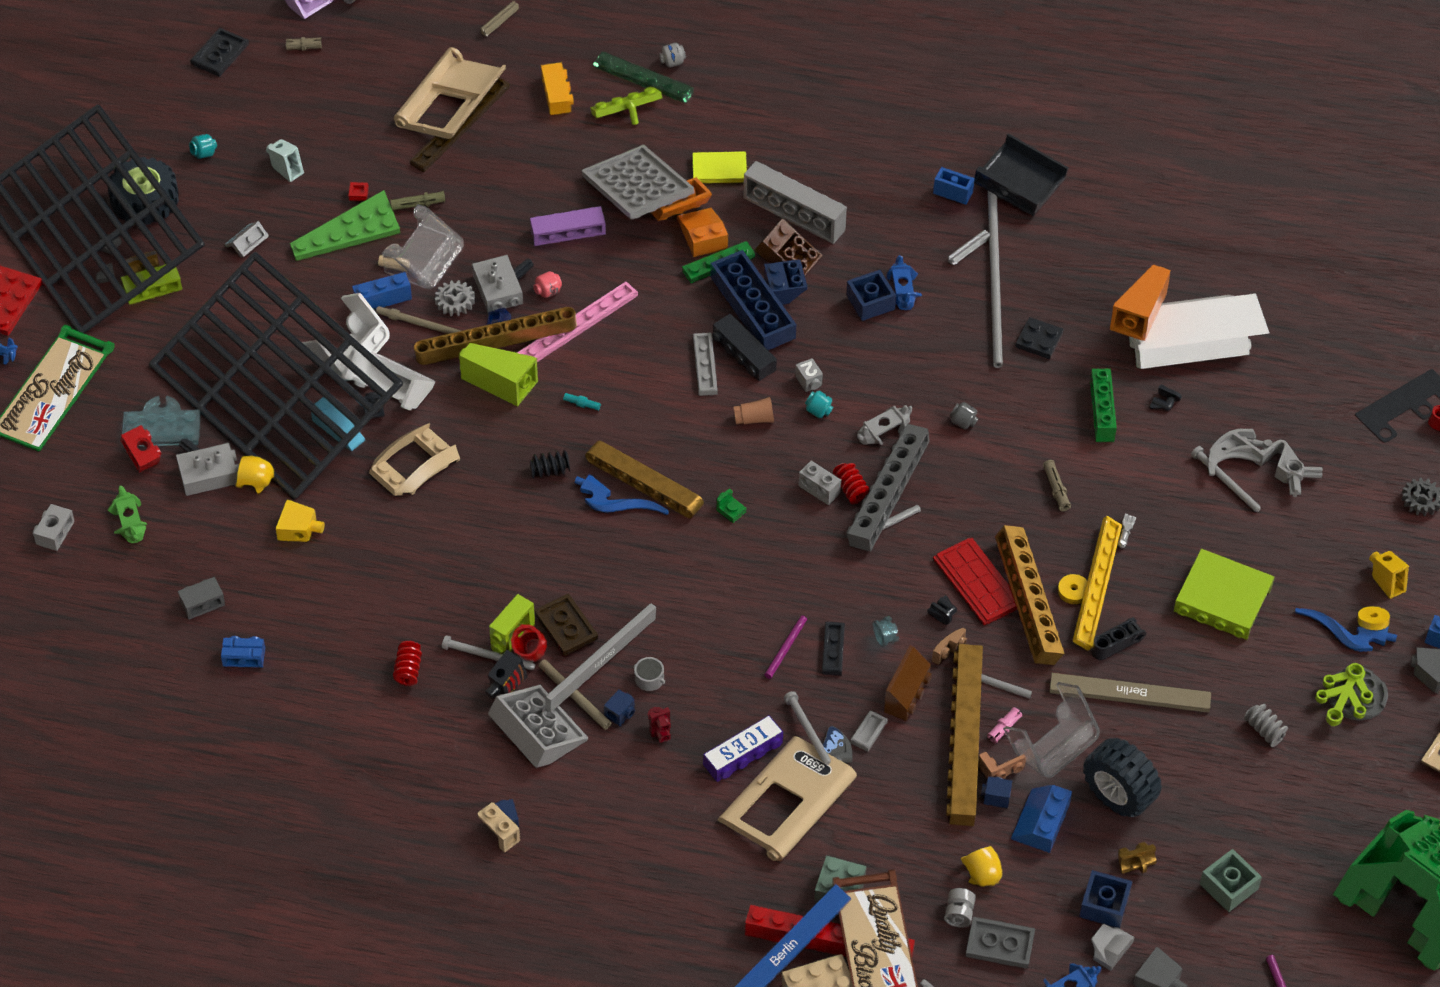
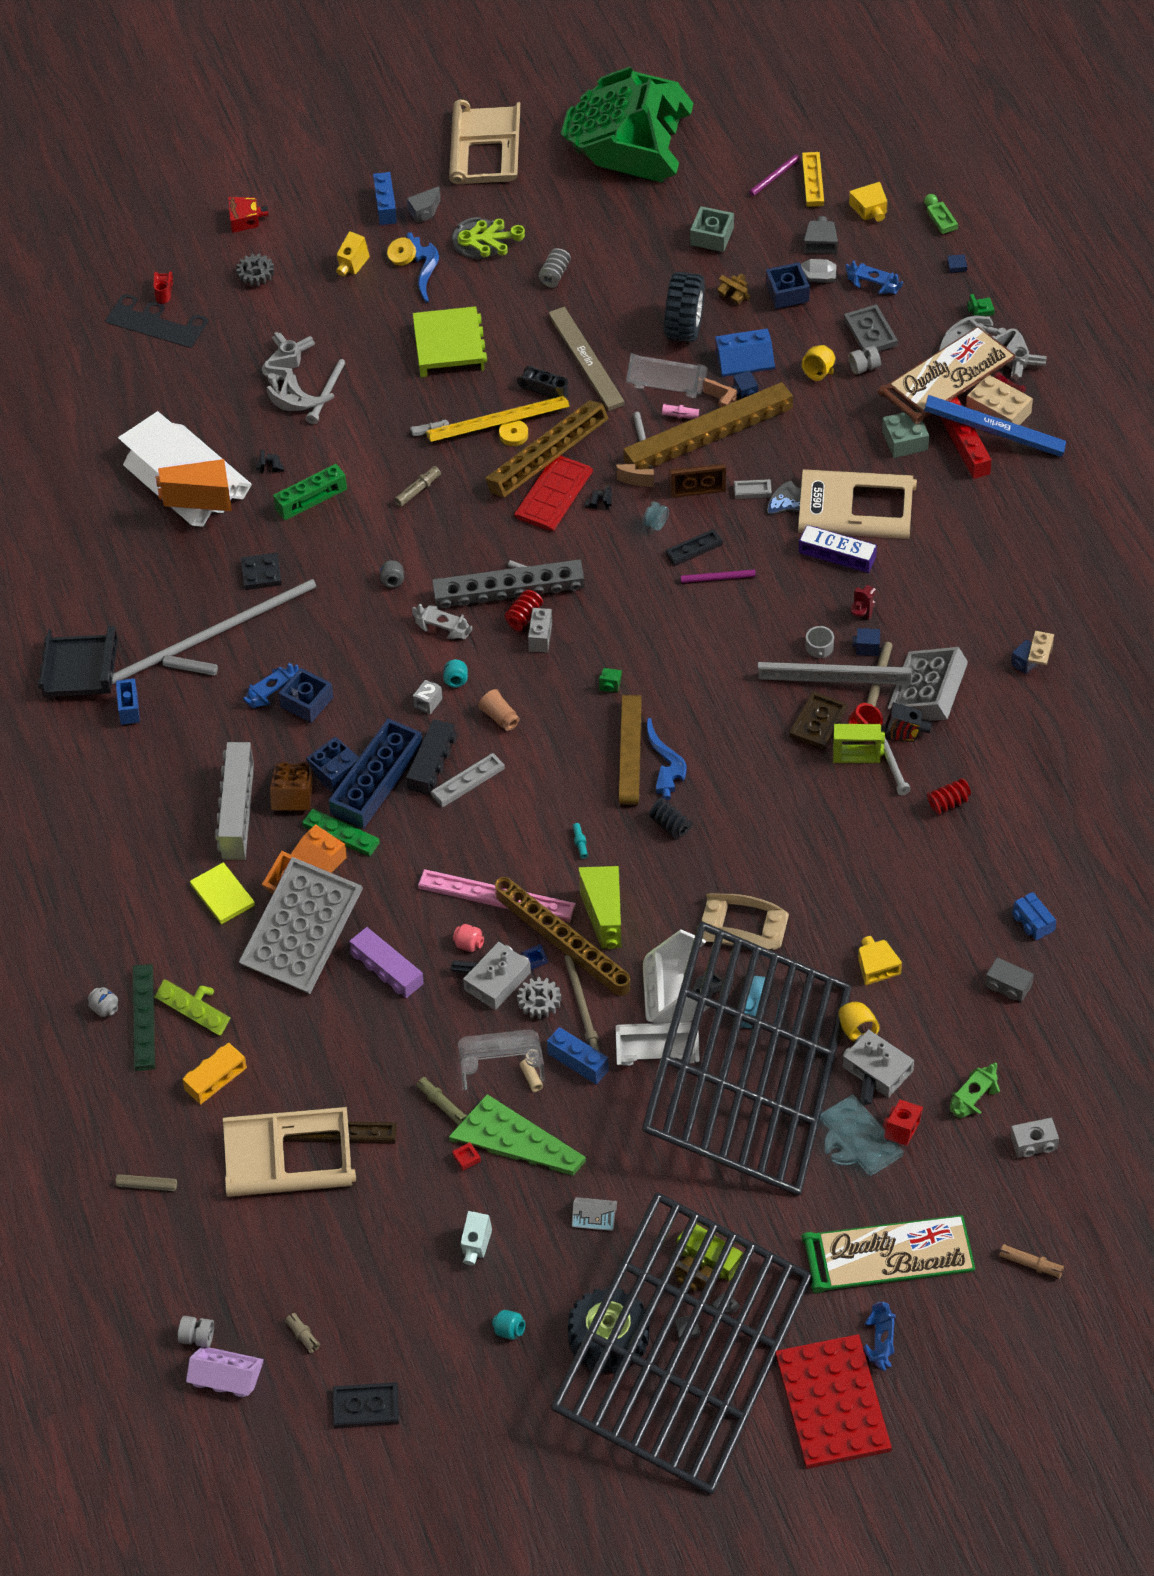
camera: 120 degrees left, 0 degrees up
(791, 699) = (766, 545): light grey bar -> none

